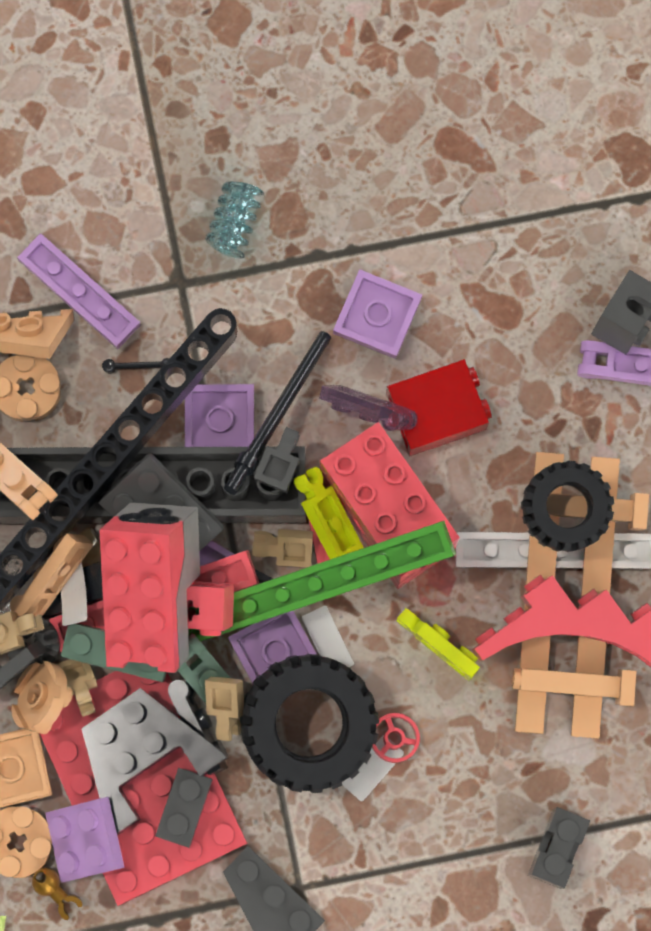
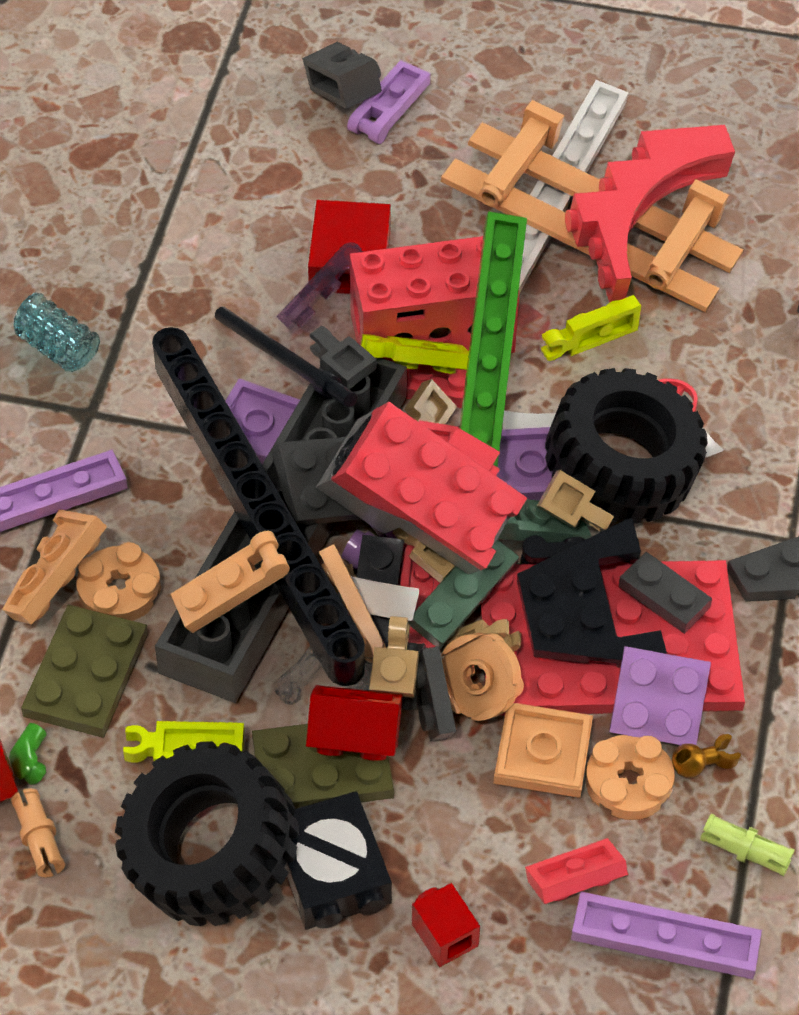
camera: 65 degrees left, 25 degrees down
(110, 366) = (140, 503): black hinge -> none
(377, 314) = (226, 261): lavender plate -> none
(598, 506) = (515, 149): black tyre -> none

